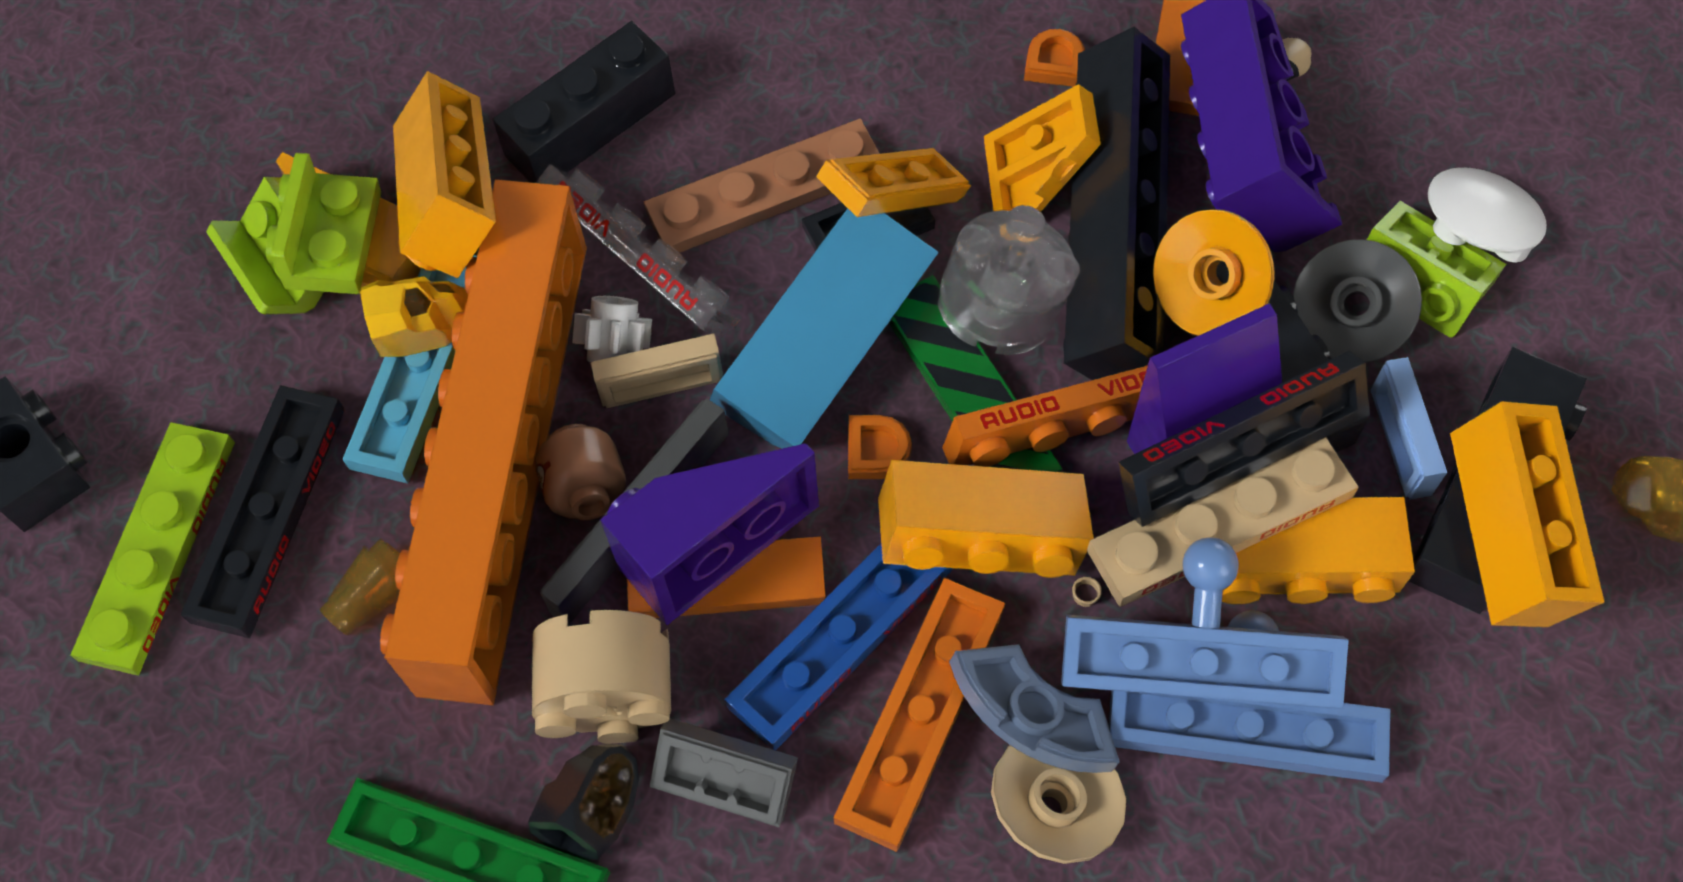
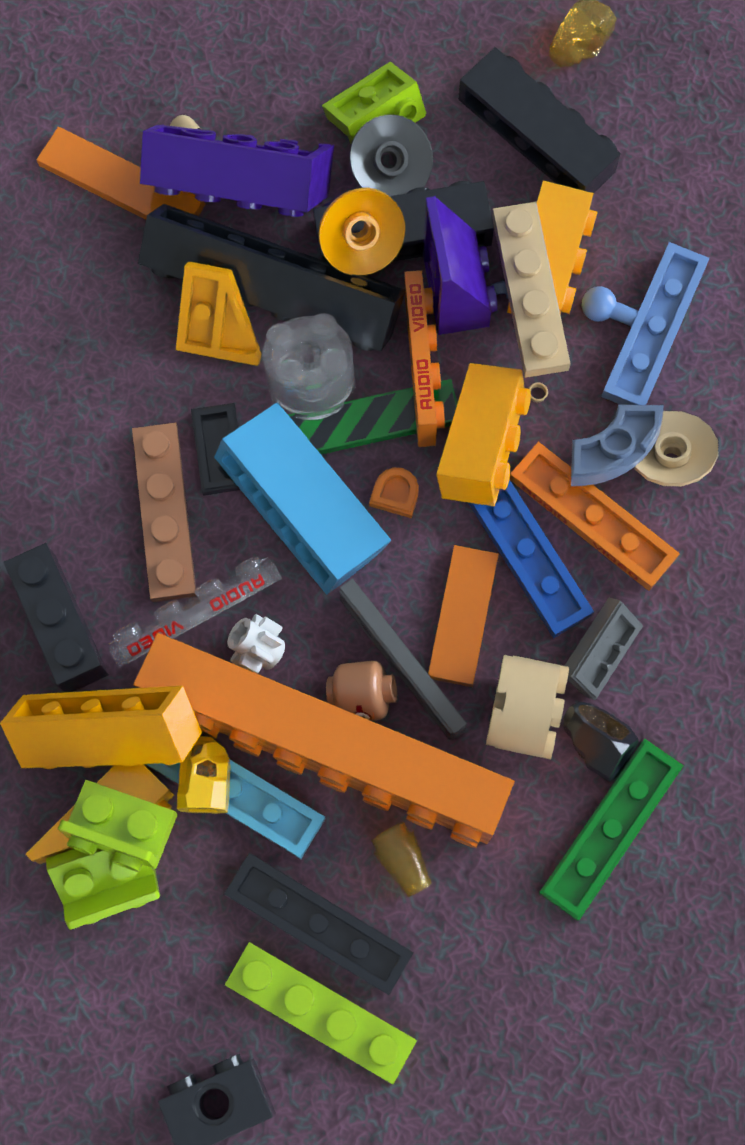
camera: 75 degrees left, 10 degrees up
(657, 371) = (298, 619): tan tile -> none
(706, 523) = (452, 625): dark purple slope -> none
(893, 181) = (210, 414): light orange tile -> none
(1053, 58) = (125, 282): orange tile -> none
(1204, 656) = (616, 330): medium blue plate -> none
(1245, 438) = (488, 241): black plate -> none
(1408, 429) = (489, 162): light blue tile -> none
(1485, 213) = (349, 58): white dish -> none
(1525, 516) = (590, 114): light orange brick -> none

